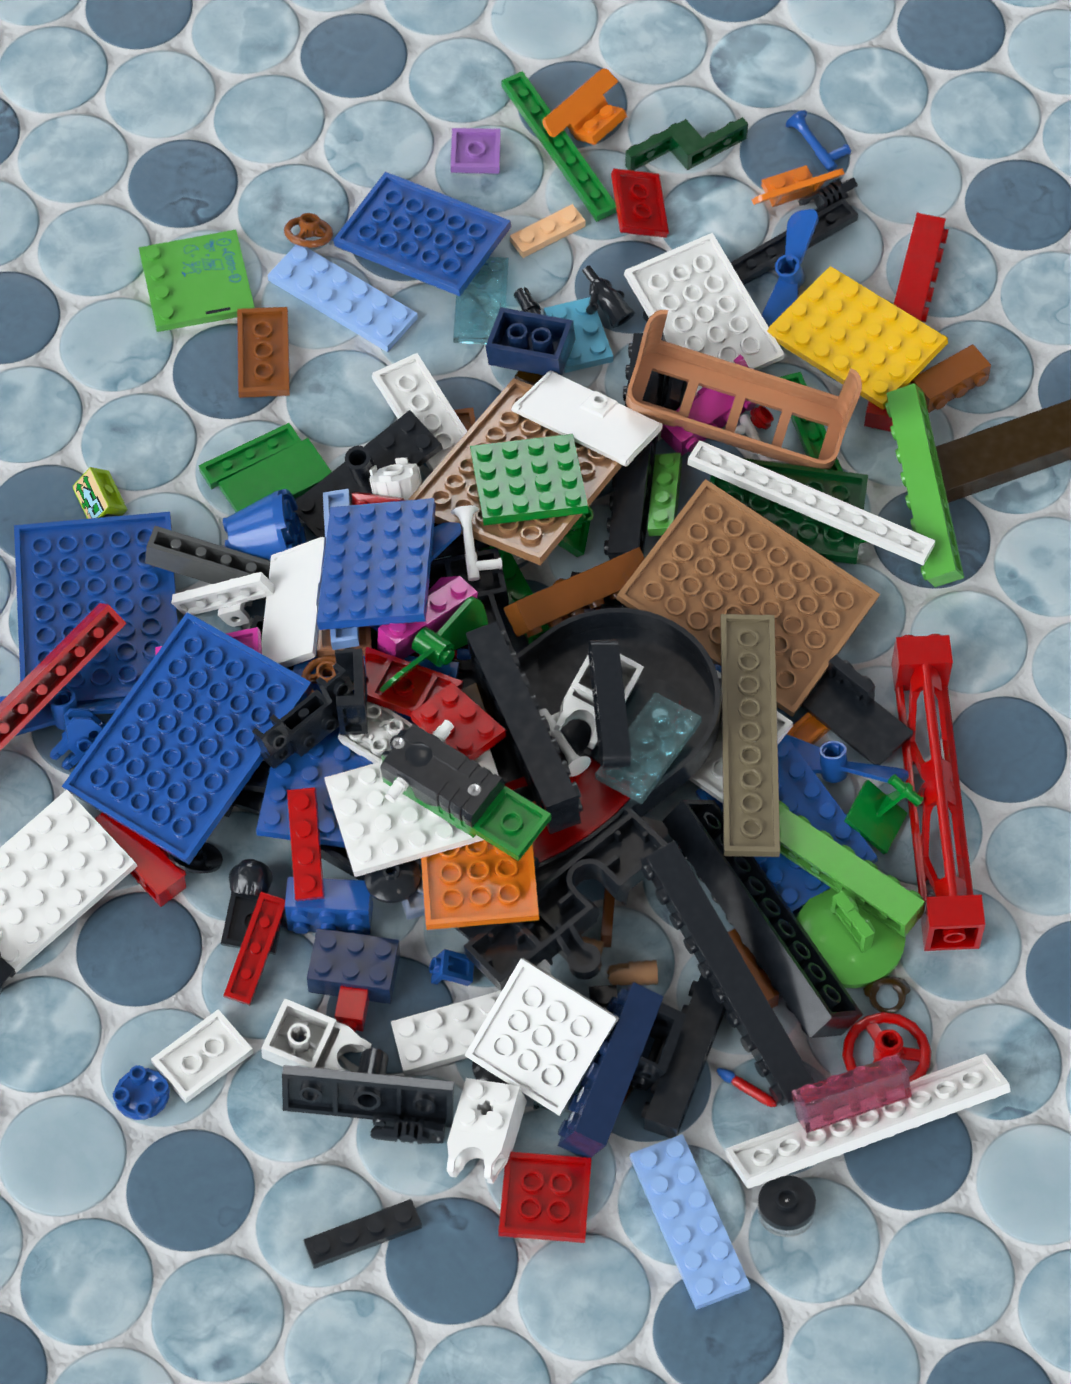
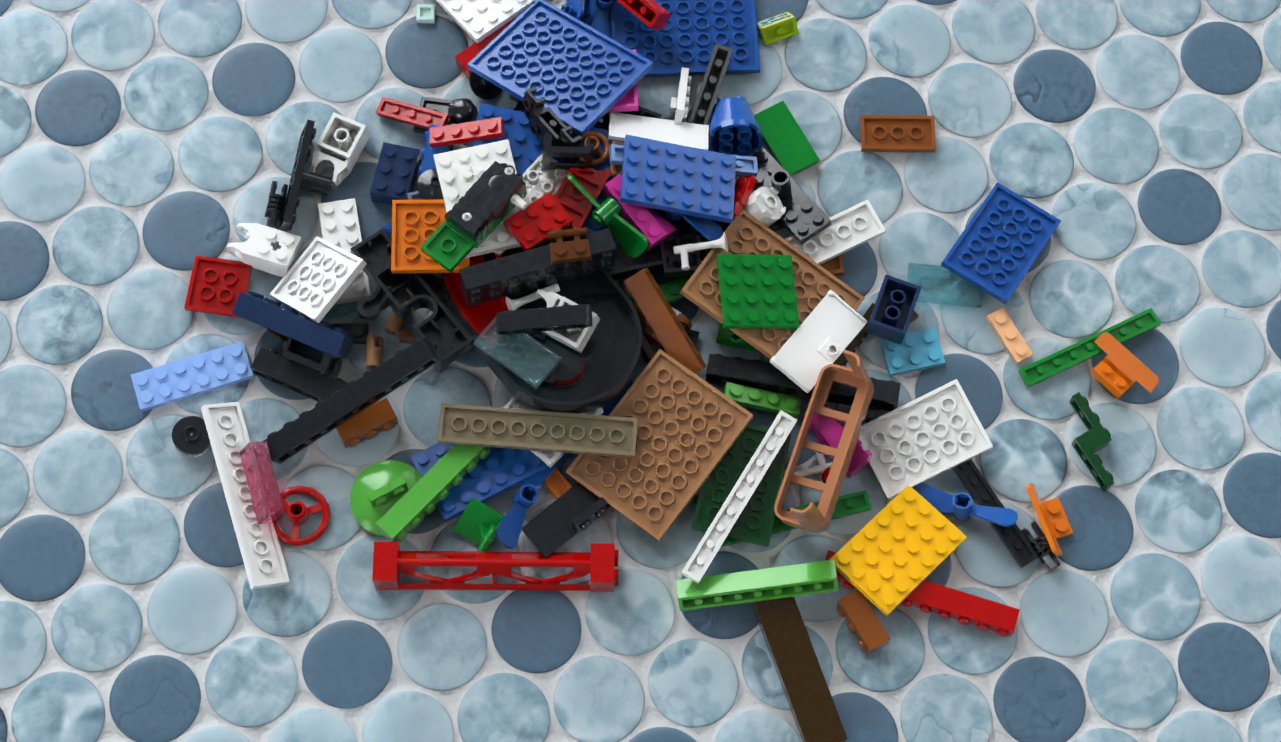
camera: 90 degrees right, 10 degrees up
(77, 952) = (425, 13): none -> light aqua tile
(141, 1093) = (320, 49): blue dish -> none
(196, 280) = (964, 92): bright green plate -> none
(202, 1056) = (342, 84): white plate -> none
(248, 454) = (807, 122): green plate -> none
(310, 226) = (1012, 161): dark orange piece -> none
(342, 297) = (948, 189): light blue plate -> none
(352, 1007) = (363, 173): red brick -> none
(362, 1233) = (209, 177): black plate -> none
(475, 150) = (1084, 287): medium lavender plate -> none
(507, 670) = (570, 250): none -> reddish brown plate
(526, 301) = (933, 318): black pin -> none
(608, 298) = (943, 368): black piece -> none
(639, 203) = (1033, 402): red tile -> none
(748, 1088) = (286, 418): red piece -> none
(763, 922) = (391, 437): black brick -> none
(827, 159) = (1081, 550): blue piece -> none
(899, 985) = (351, 529): dark brown piece -> none

